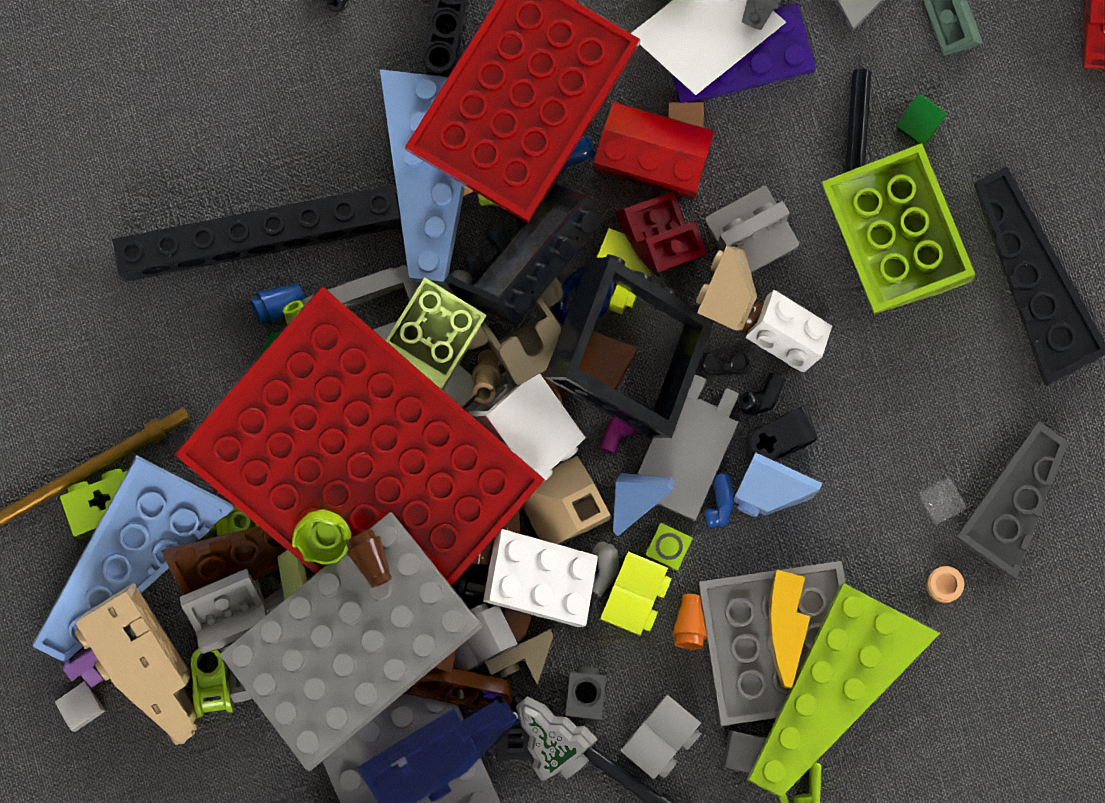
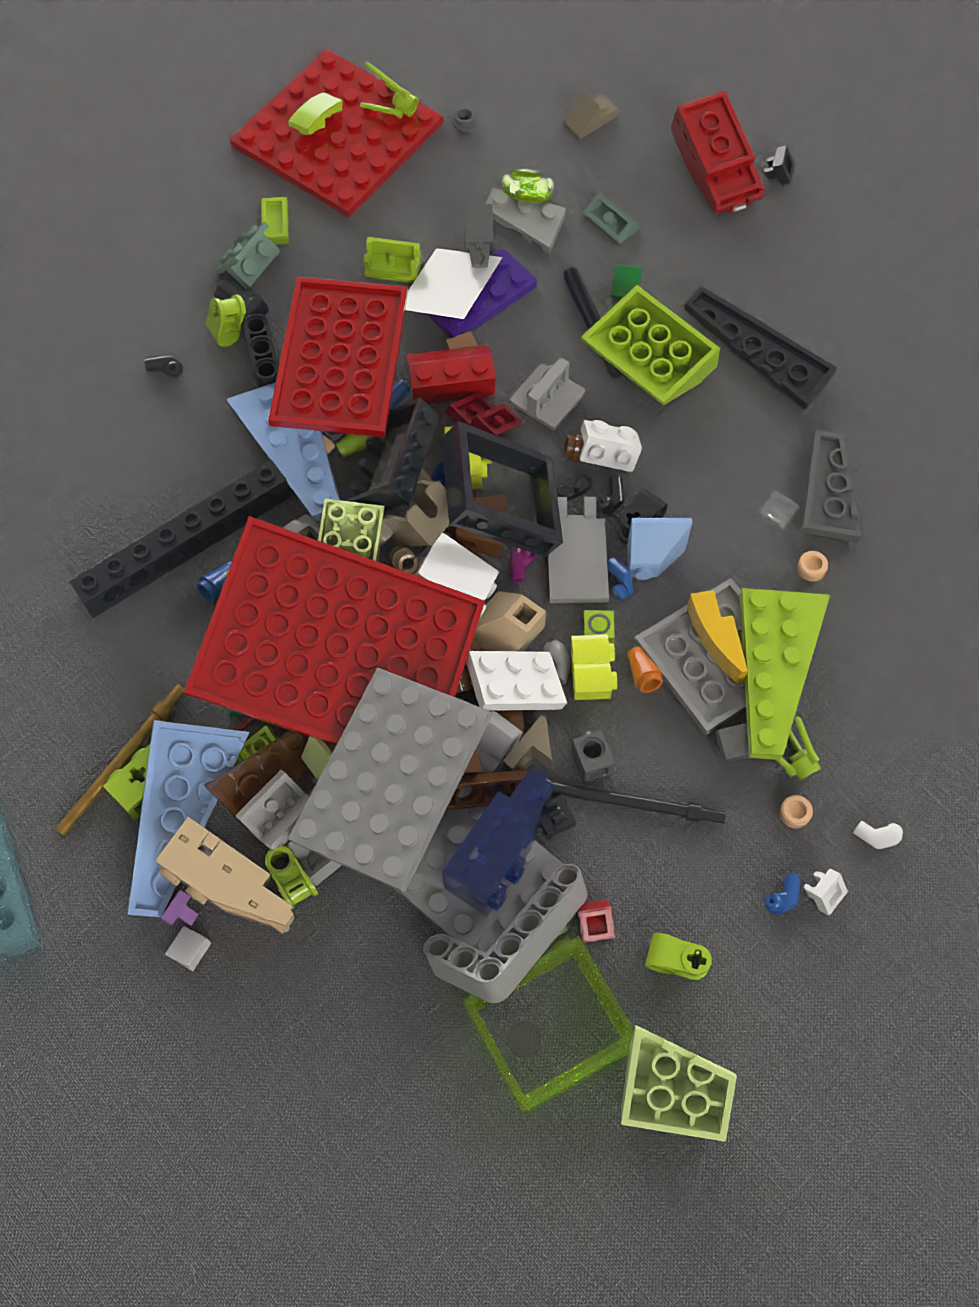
camera: 25 degrees left, 15 degrees down
(322, 537) = (331, 706): lime hair -> none
(369, 557) = (376, 700): reddish brown cone -> none
(553, 740) = (586, 798): light grey rock -> none
(636, 496) = (557, 596): medium blue slope -> none
(661, 737) = (666, 761): light grey brick -> none
(731, 290) = (556, 427): tan slope -> none

